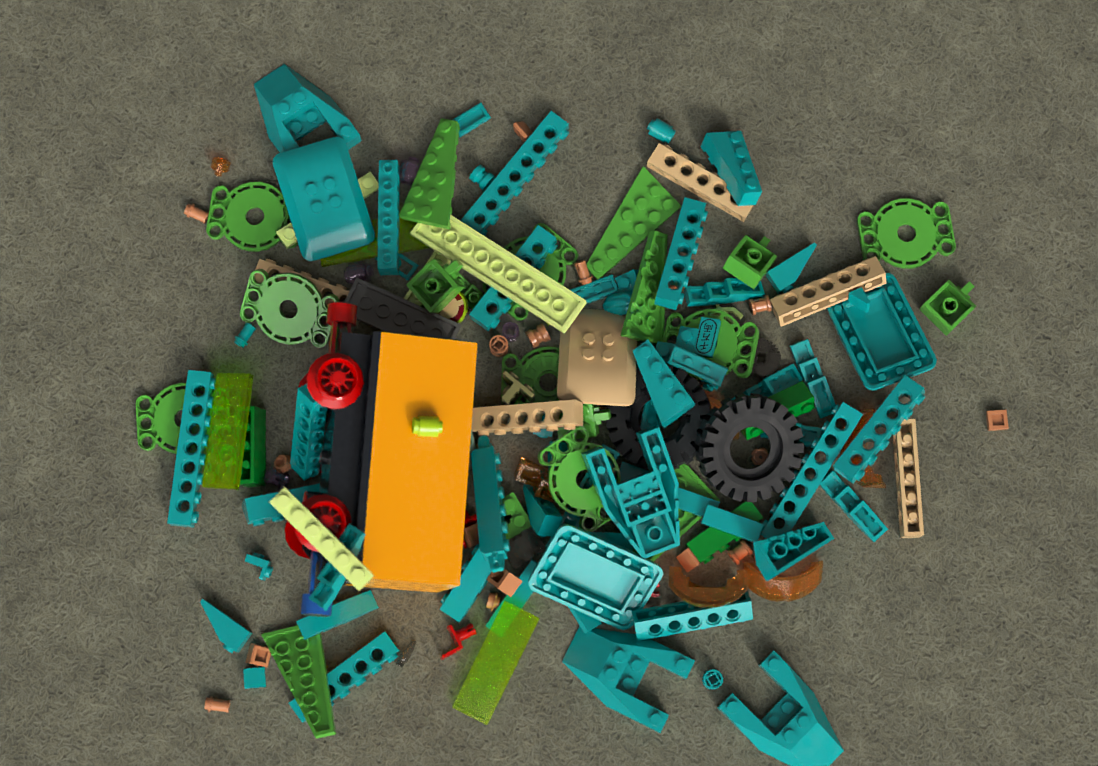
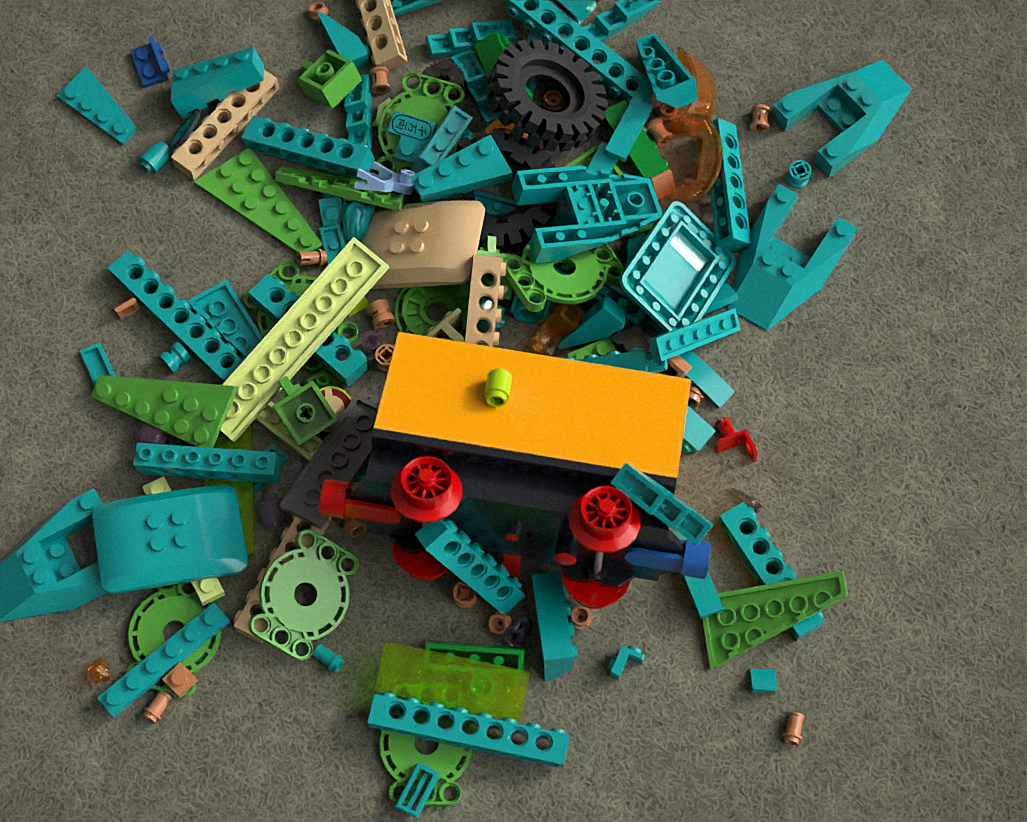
camera: 85 degrees left, 10 degrees down
(160, 421) = (407, 810): none -> teal tile
(216, 226) = (180, 679): none -> nougat plate
(228, 630) = (701, 707): teal slope -> none
(231, 212) = (163, 660): none -> teal plate
(258, 655) = (735, 675): nougat slope -> none
(322, 539) = (628, 509): yellowish green plate -> none
(496, 662) = (765, 396): clear neon green plate -> none
(520, 216) = (228, 316): none -> teal wing
(533, 595) = (694, 335): none -> plate
(652, 332) = (386, 180): none -> light blue piece
(685, 149) = (184, 131): none -> wheel
(708, 71) = (96, 105): none -> teal wing
(751, 110) = (149, 63): none -> blue bracket
(765, 641) = (760, 118): none -> nougat bush
(823, 242) = (316, 8): none -> nougat plate

